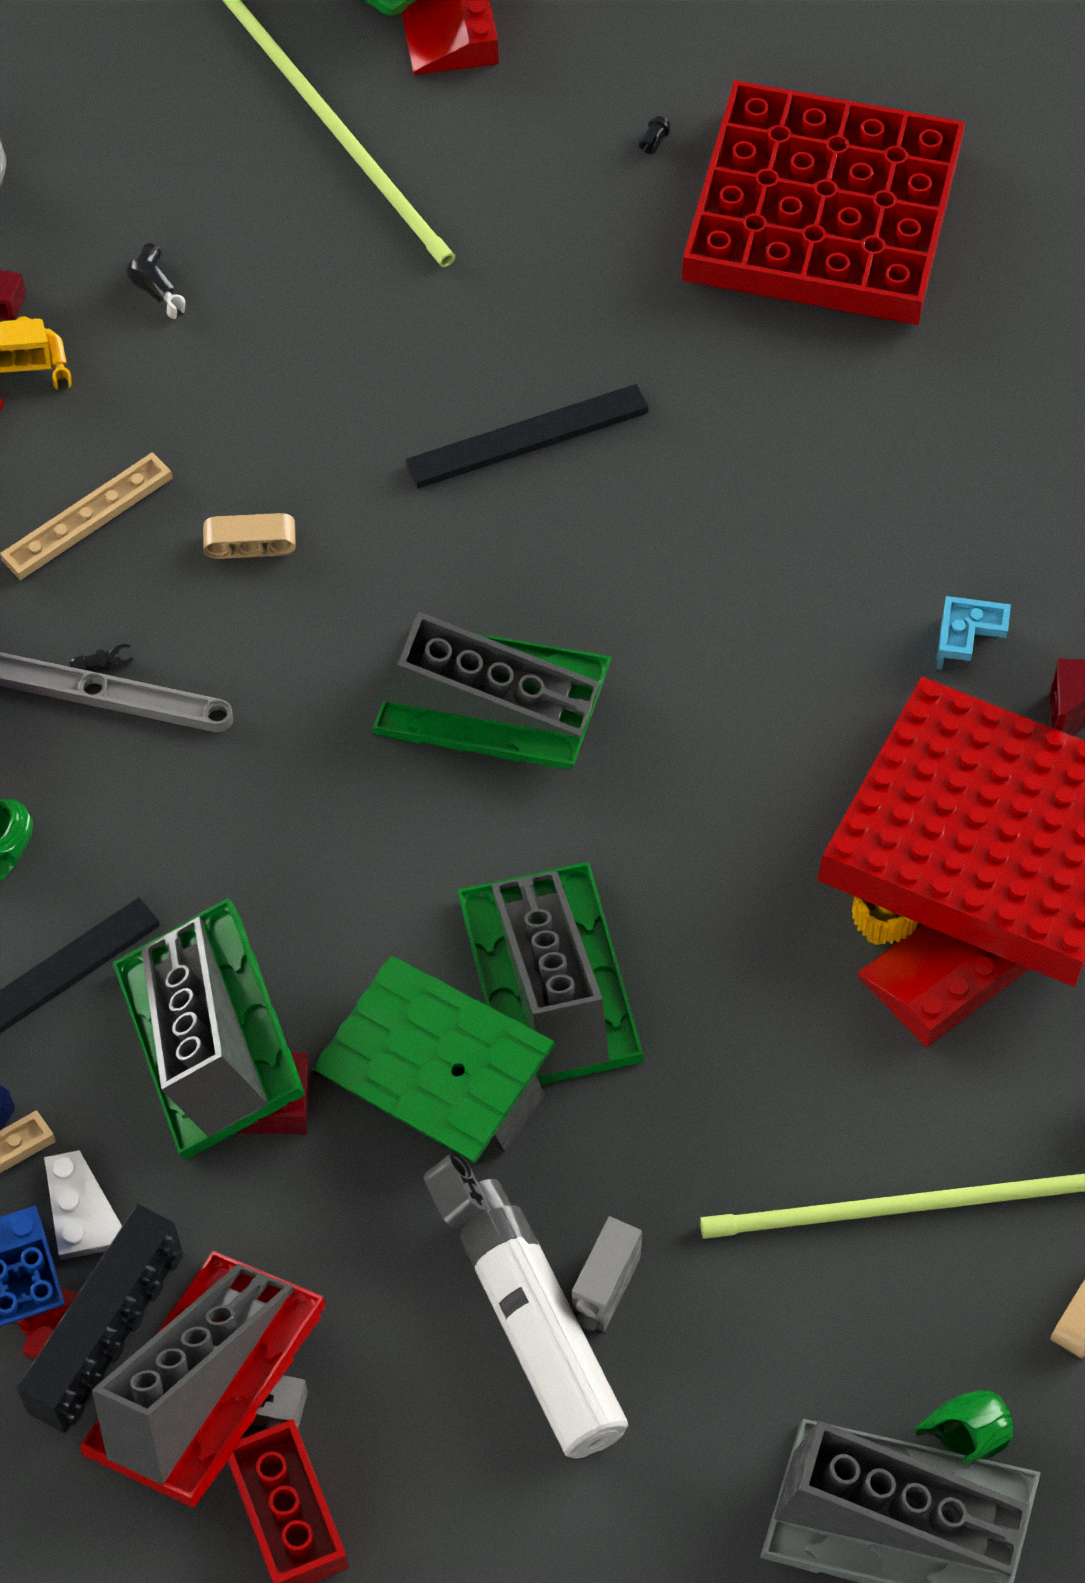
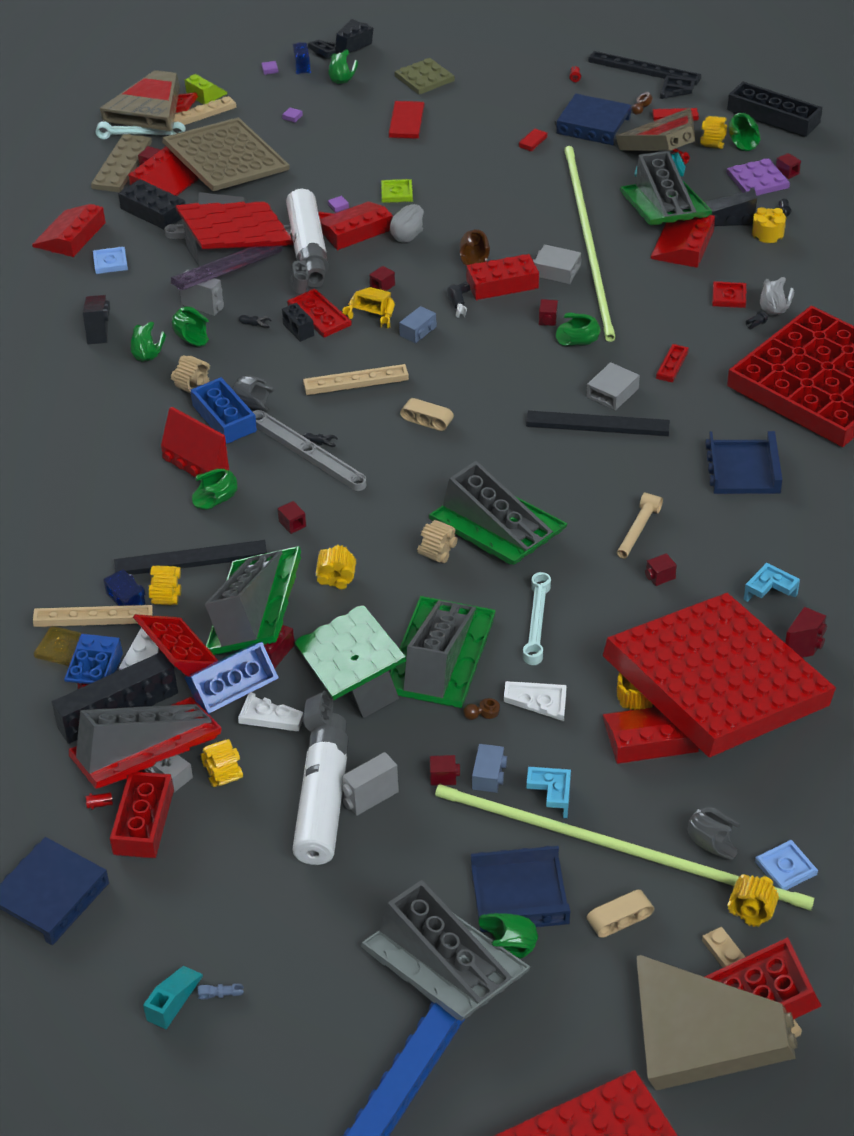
camera: 30 degrees right, 15 degrees down
(40, 1066) = (164, 585): none -> yellow brick
(123, 362) = (417, 324): none -> sand blue brick
(125, 173) = (474, 247): none -> reddish brown hair
(149, 1173) = (177, 642): none -> red slope
(156, 834) = (292, 517): none -> dark red brick
(186, 1518) = (98, 800): none -> red pin
(204, 209) = (502, 276): none -> red brick
(268, 1190) = (232, 677): none -> brick
(274, 148) = (557, 263): none -> light grey brick
(297, 901) = (335, 567): none -> yellow brick
(321, 252) = (548, 312): none -> dark red brick
(352, 1352) = (221, 763): none -> yellow brick
(357, 1223) = (265, 714): none -> white wing
(393, 271) = (578, 331): none -> green hair
(426, 778) = (437, 541): none -> tan brick
(511, 356) = (613, 386): none -> light grey brick
(572, 270) = (672, 363): none -> red tile
(581, 99) = (729, 294): none -> red tile
(658, 846) = (537, 618): none -> light aqua piece
(663, 84) = (773, 297): none -> light grey hair
(667, 1063) = (488, 708): none -> reddish brown plate
(692, 1190) = (443, 770): none -> dark red brick
(704, 558) = (648, 504): none -> tan piece
(749, 990) = (537, 697): none -> white wing
(755, 1152) = (488, 768): none -> sand blue brick
(791, 673) = (661, 569): none -> dark red brick
(798, 421) = (744, 465): none -> dark blue panel
(873, 1132) = (555, 781): none -> medium azure panel
(924, 1338) = (521, 884): none -> dark blue panel

